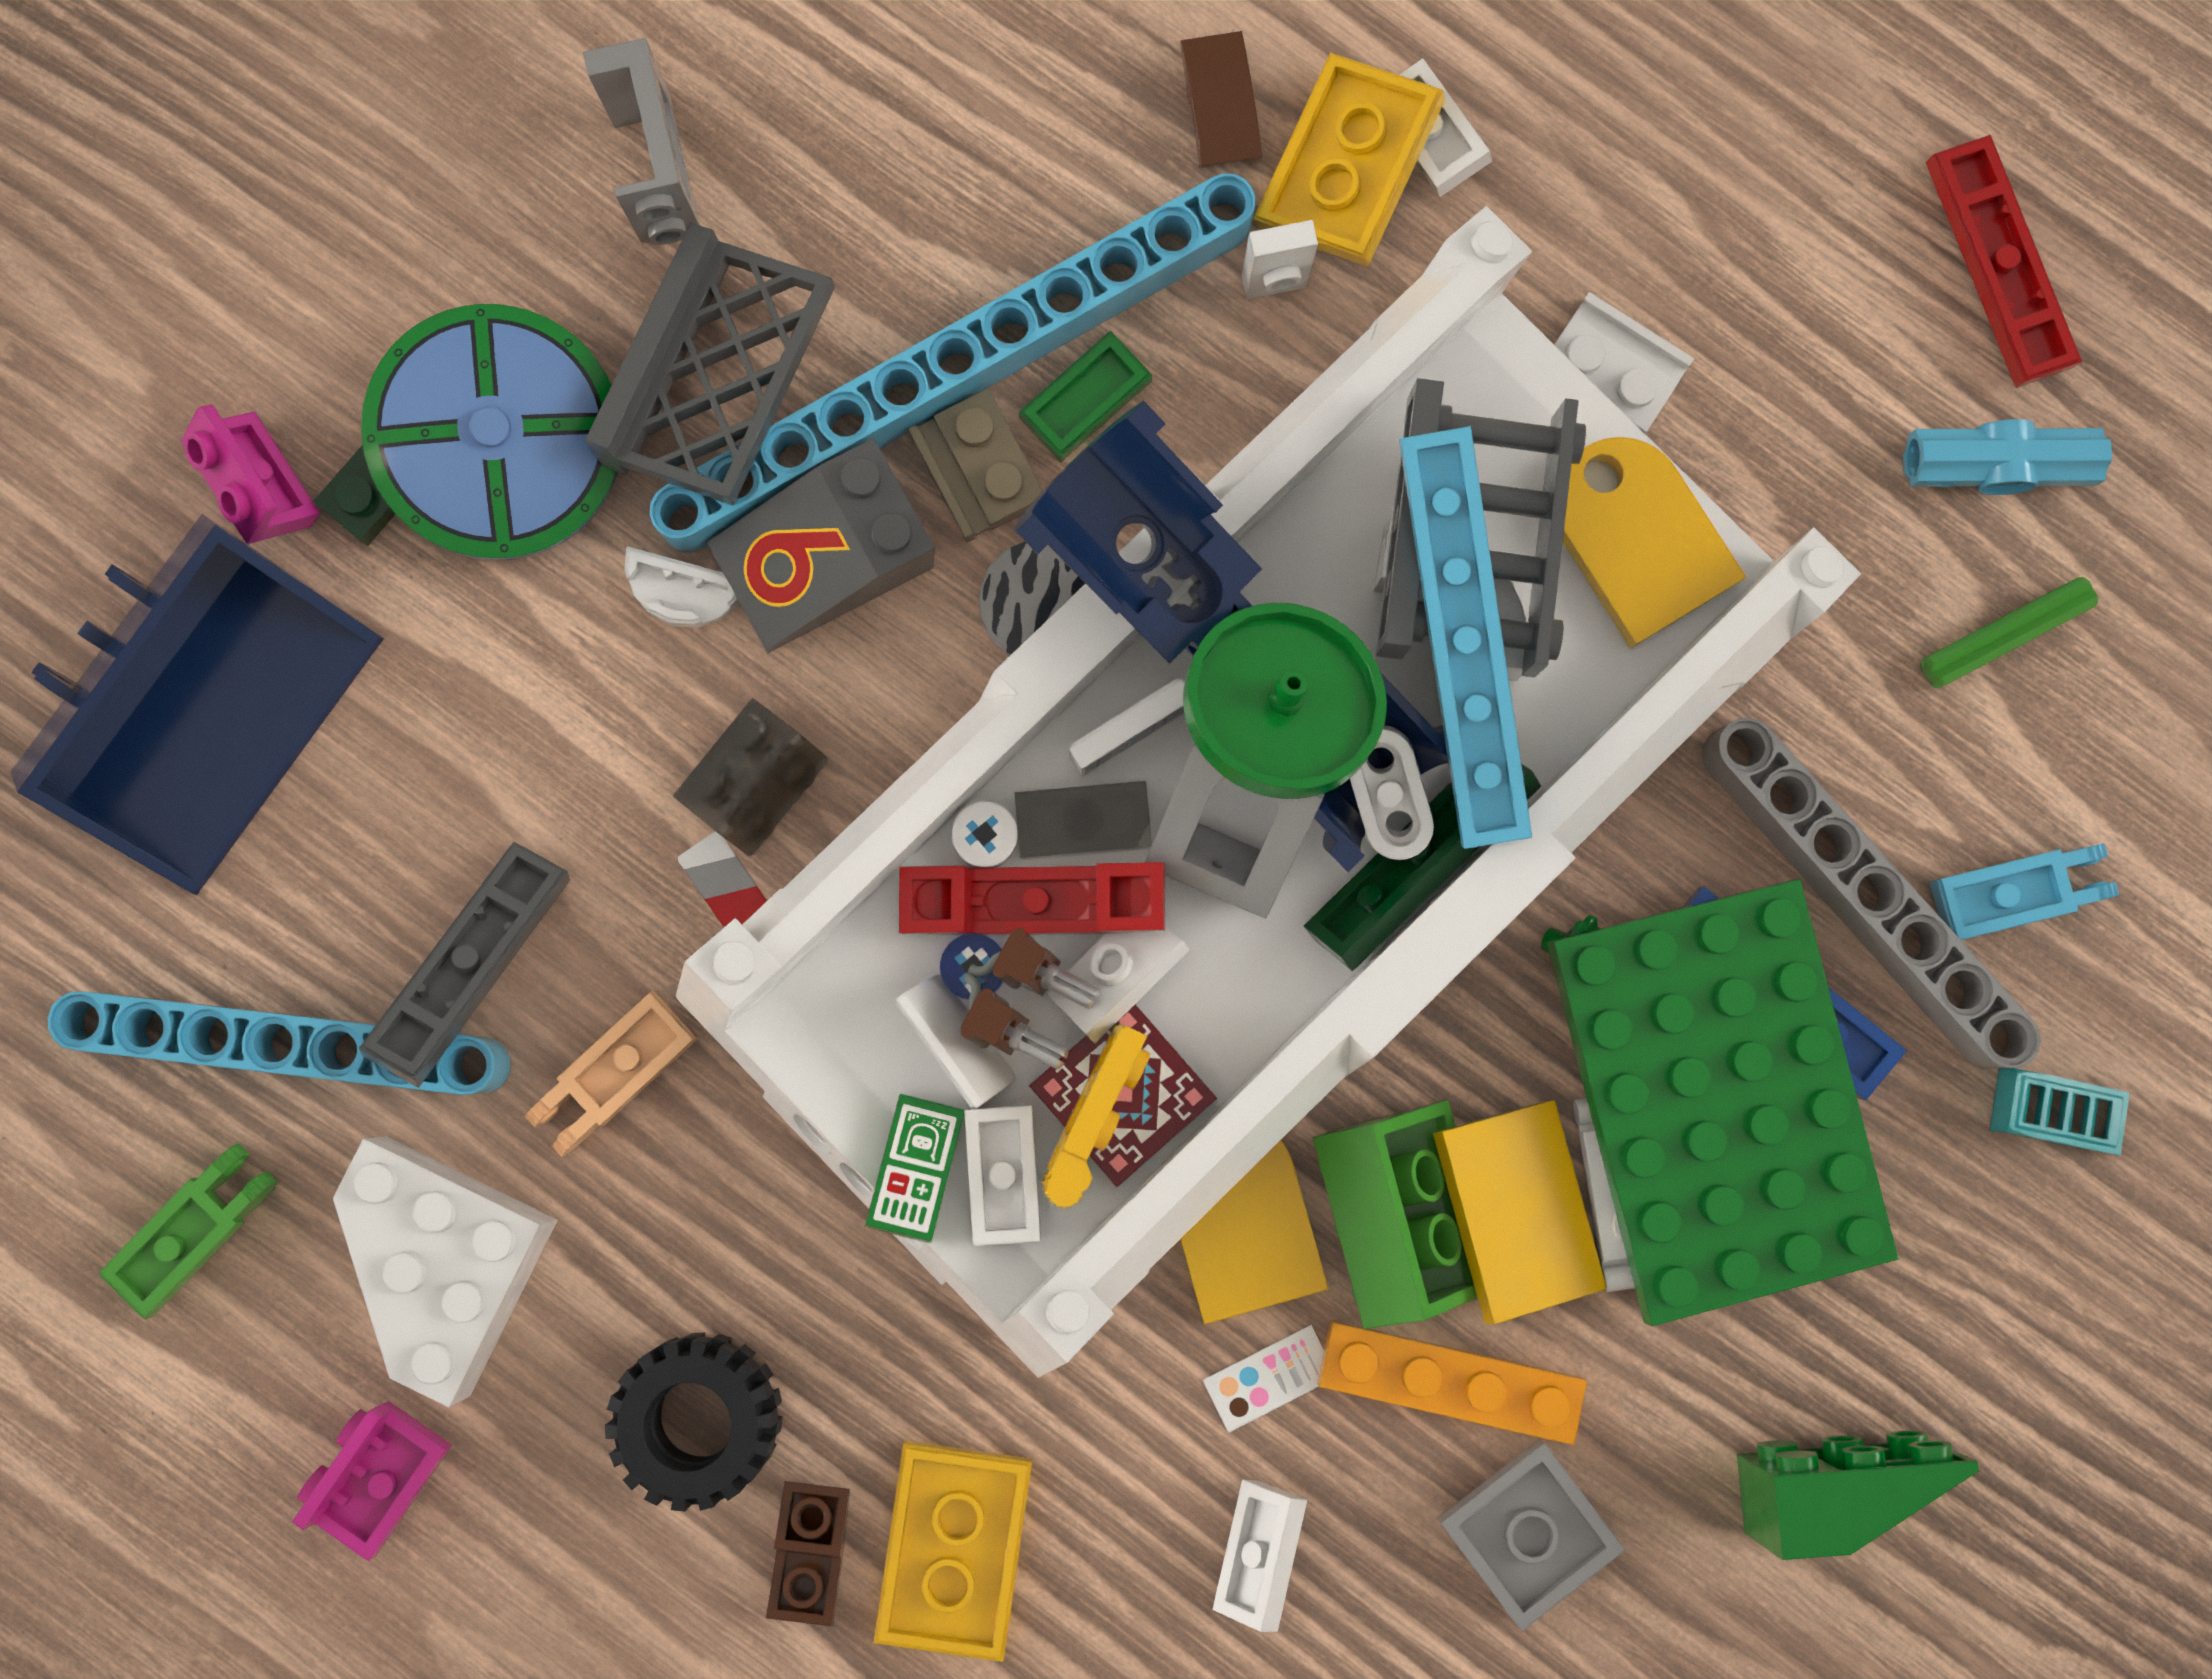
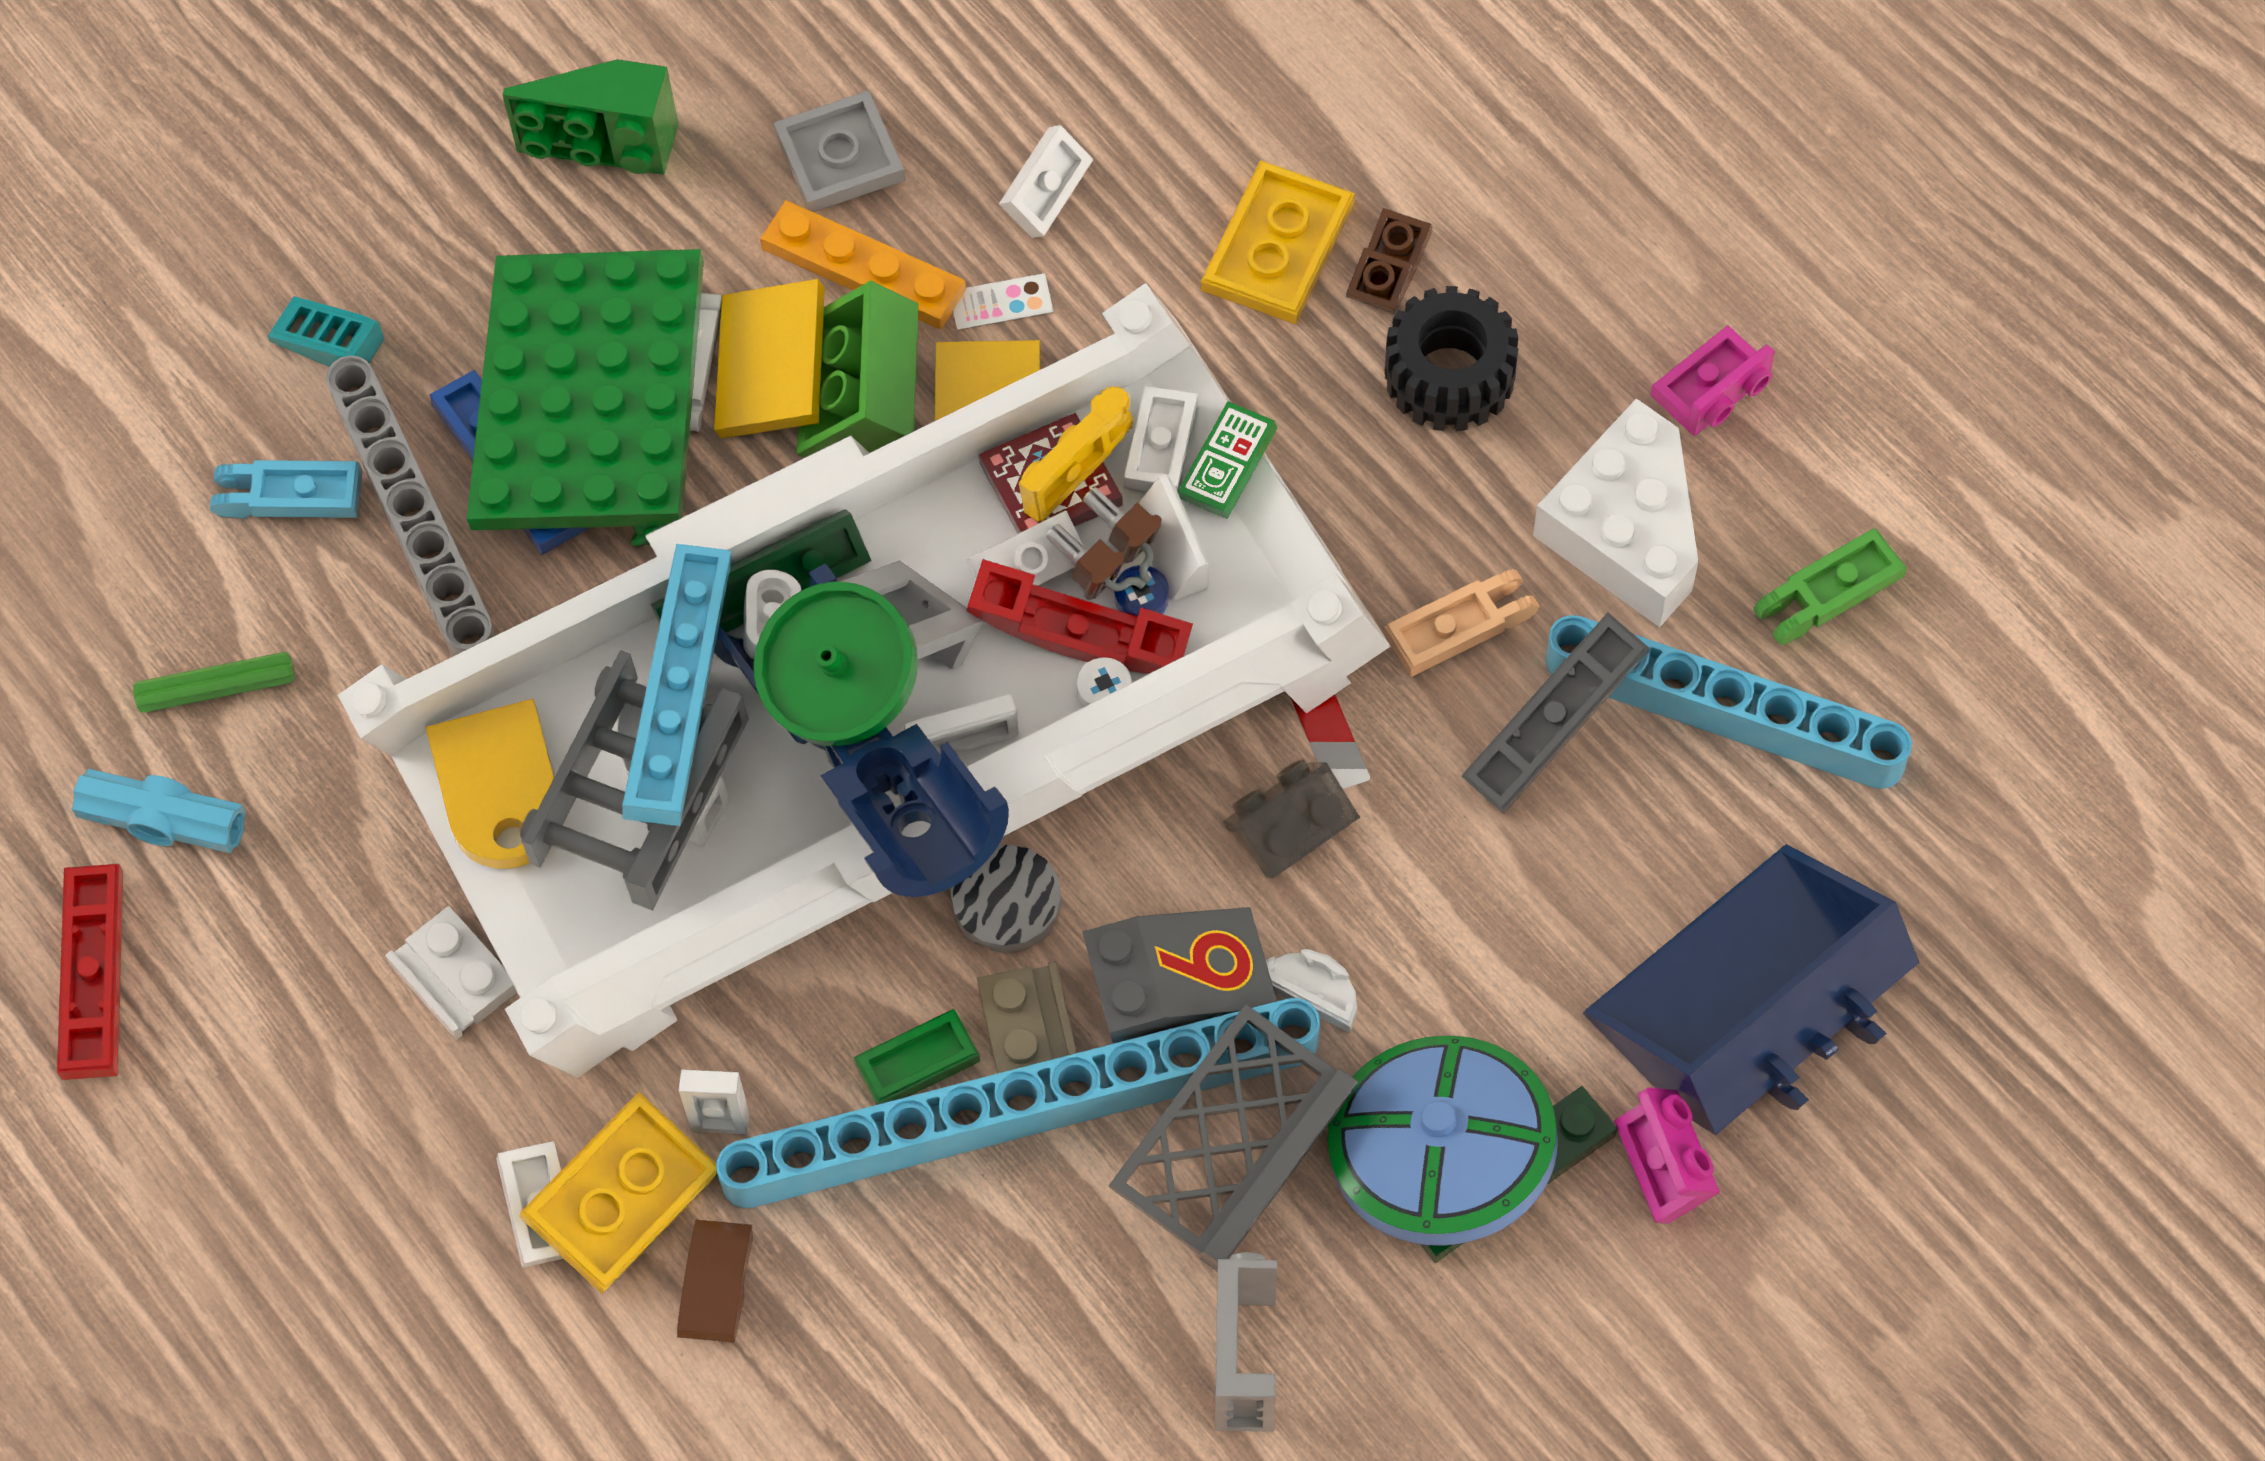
camera: 160 degrees left, 20 degrees down
(1083, 820) = (1033, 678): clear smoke plate -> none

